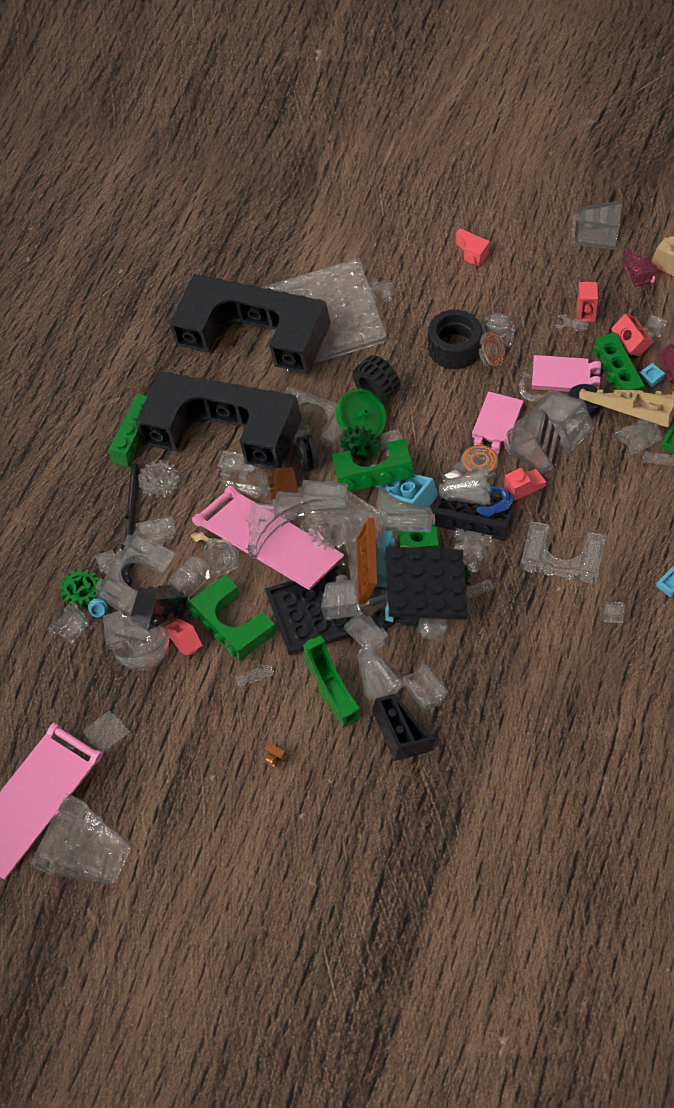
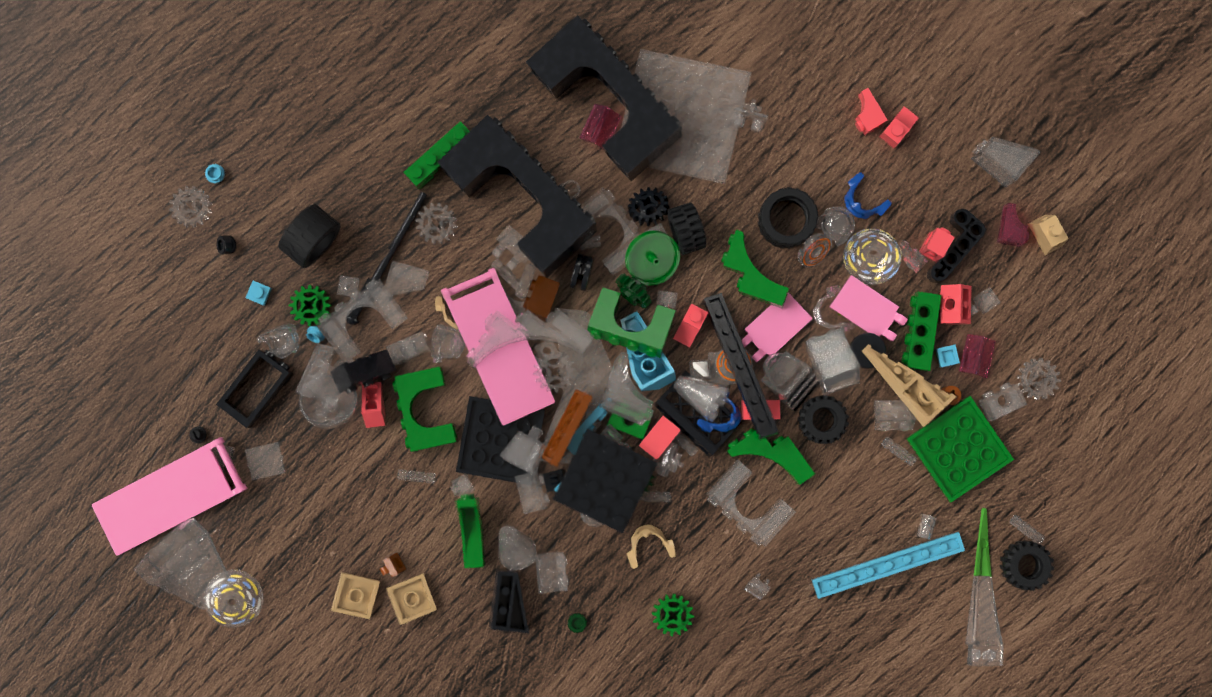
camera: 25 degrees right, 30 degrees up
(27, 604) = (258, 293): none -> medium azure plate
(30, 740) = (198, 435): none -> black piece
(52, 528) = (309, 235): none -> black tyre
(62, 702) = (237, 414): none -> black window
(138, 868) = (236, 586): none -> clear dish
(255, 793) = (355, 595): none -> tan hinge
(257, 351) = (600, 125): none -> clear pink panel
(297, 660) = (461, 486): none -> clear plate
(309, 771) = (411, 599): none -> tan hinge
(334, 384) = (648, 206): none -> black gear
(424, 450) = (690, 325): none -> coral arch
(453, 534) = (659, 437): none -> coral panel
(456, 394) = (753, 283): none -> green arch
(473, 720) = (577, 622): none -> dark green tile
(487, 452) = (740, 366): none -> black plate
(488, 643) = (645, 531): none -> tan helmet
(502, 248) = (899, 127): none -> coral arch
(505, 309) = (855, 207): none -> blue helmet
(543, 320) = (869, 267): none -> clear dish
(561, 674) = (665, 621): none -> green gear
(562, 504) = (782, 452): none -> green arch
(583, 450) = (839, 419): none -> black tyre
(608, 289) = (954, 249): none -> black beam

